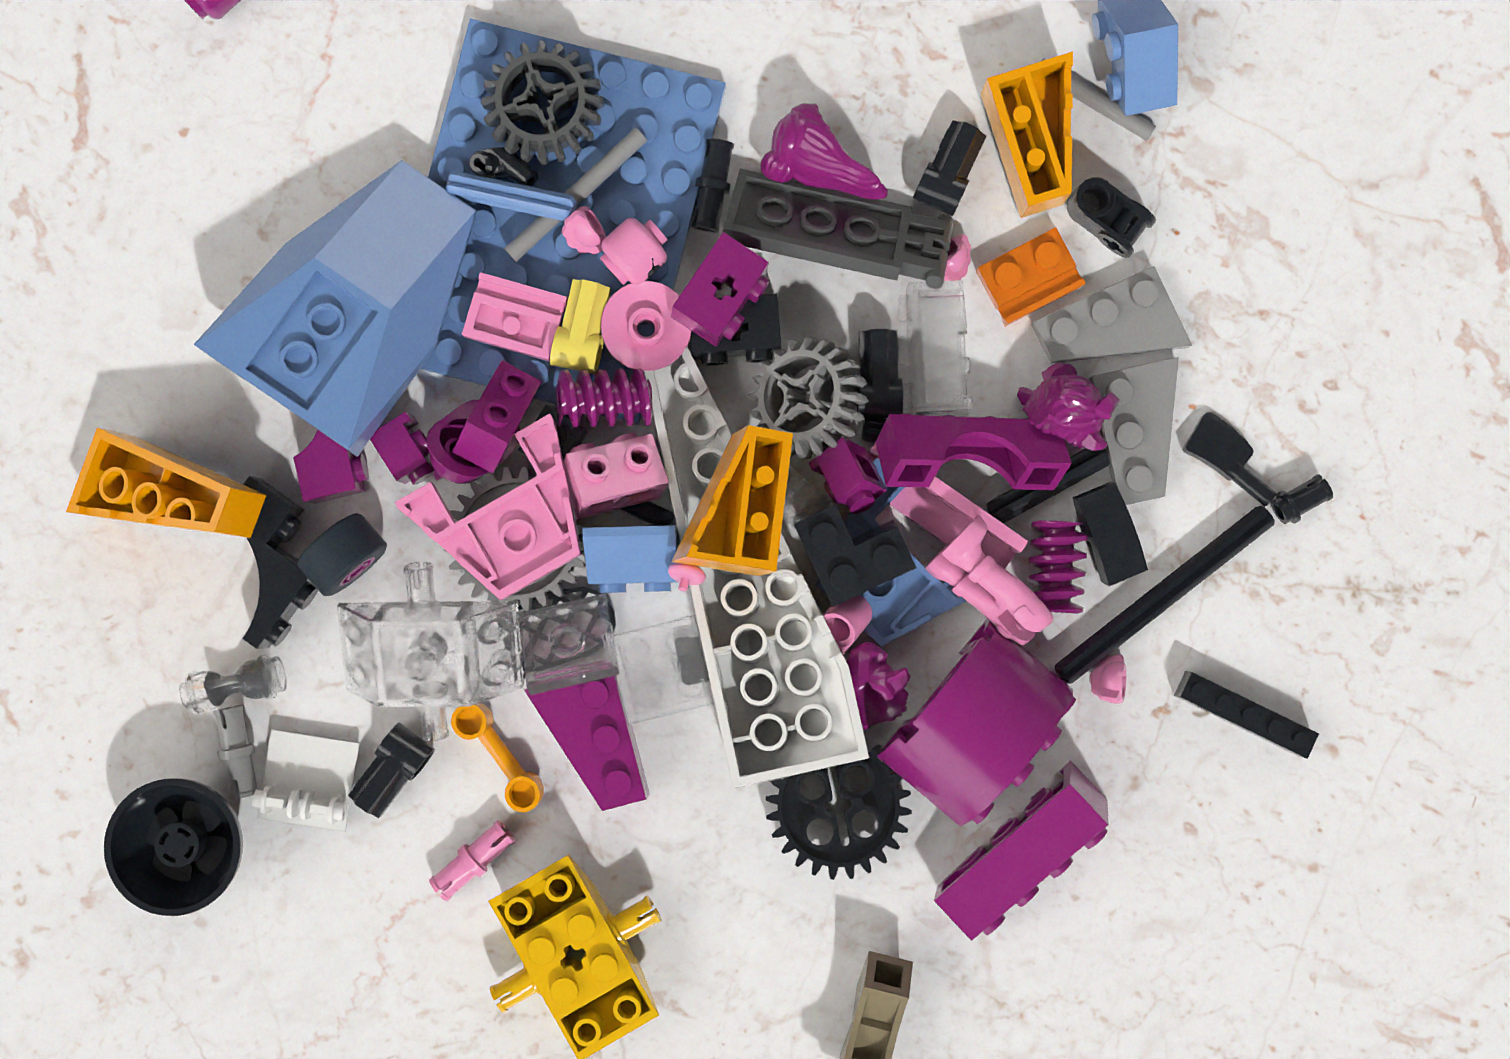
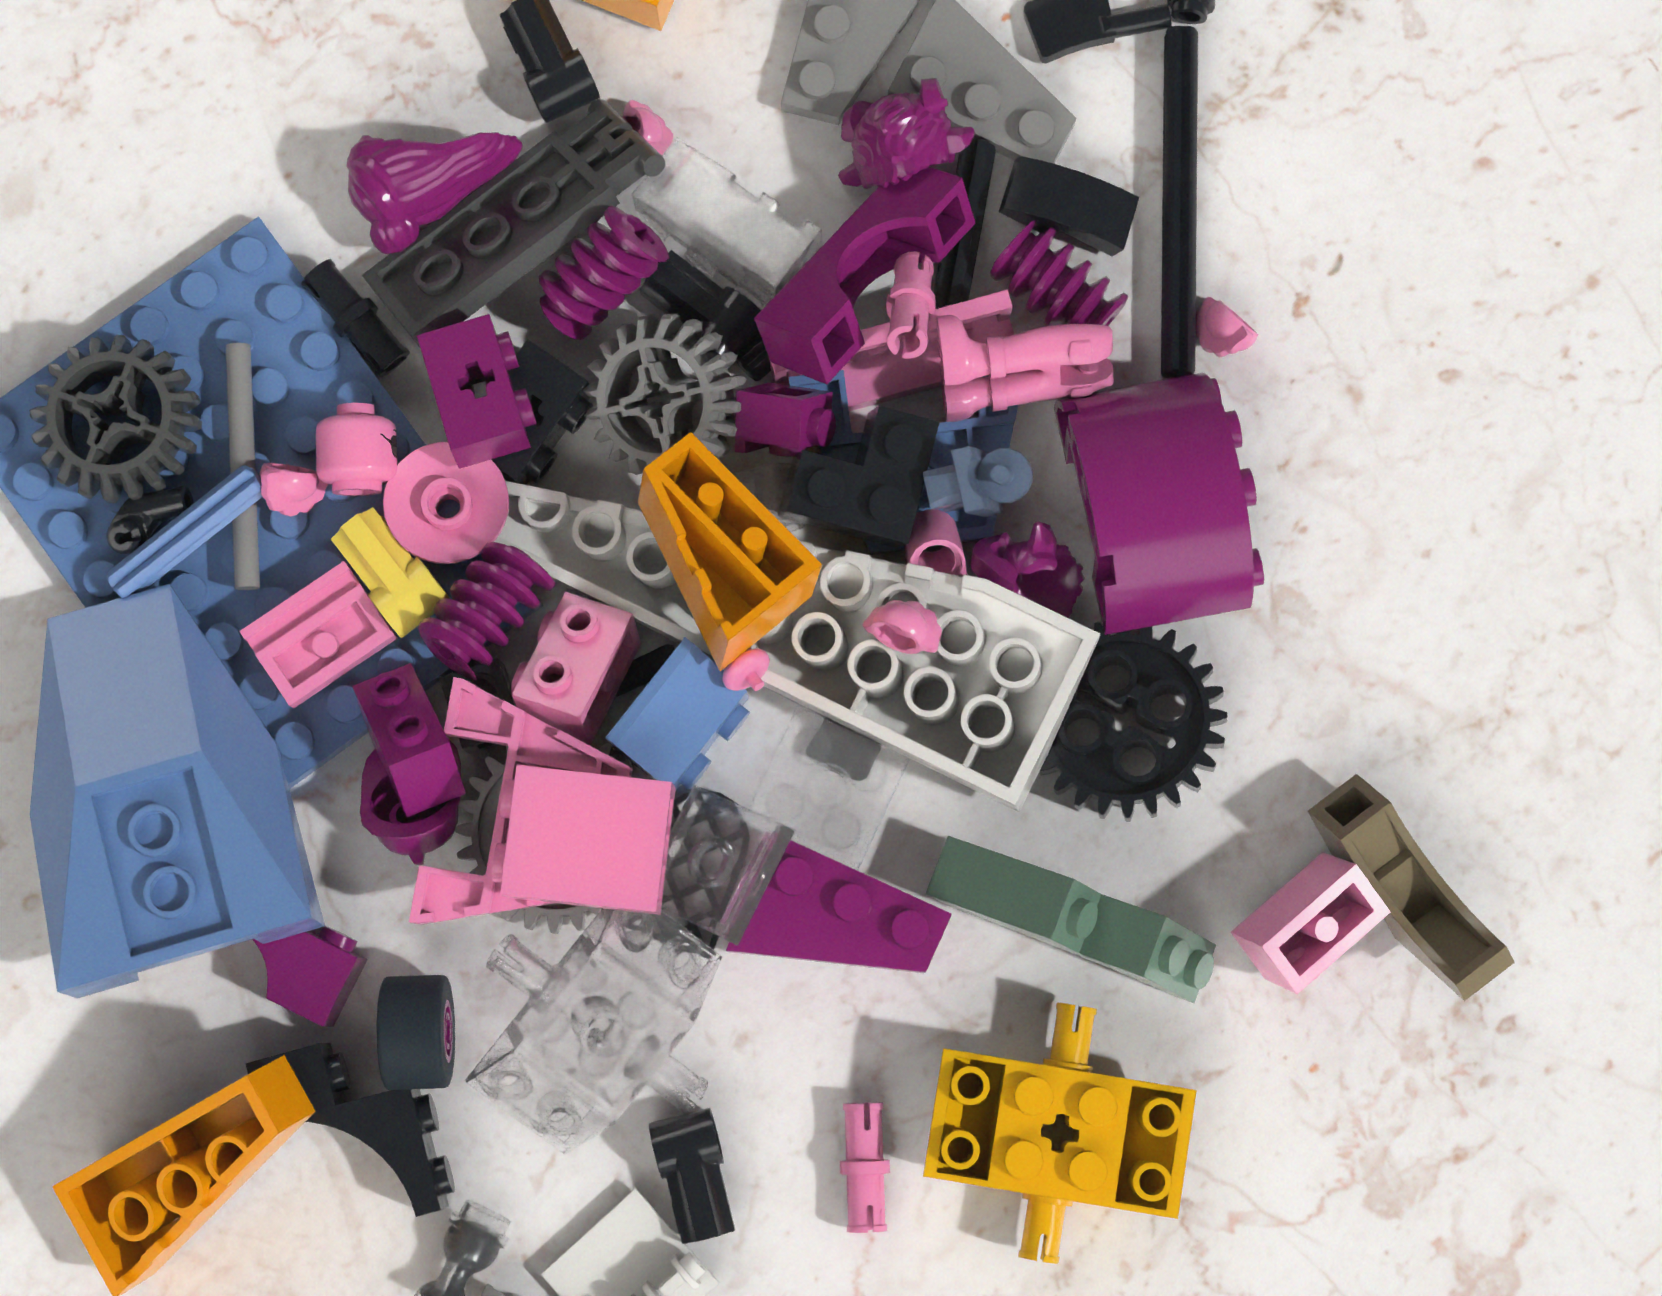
camera: 55 degrees left, 5 degrees down
(404, 450) = (360, 874): magenta brick -> none
(515, 564) = (585, 839): none -> bright pink brick
(525, 787) = (715, 1039): light orange bar -> none
(699, 867) = (1072, 918): none -> sand green arch
(783, 643) = (905, 627): none -> bright pink piece
(807, 1002) = (1310, 922): none -> bright pink brick
(848, 302) = (600, 273): none -> magenta piece
(902, 617) = (979, 481): none -> sand blue hips
(972, 495) = (910, 305): none -> bright pink pin
(1024, 854) = (1336, 564): magenta wedge -> none
(1030, 276) = (730, 70): orange plate -> none
(1246, 714) = (1373, 219): black piece -> none

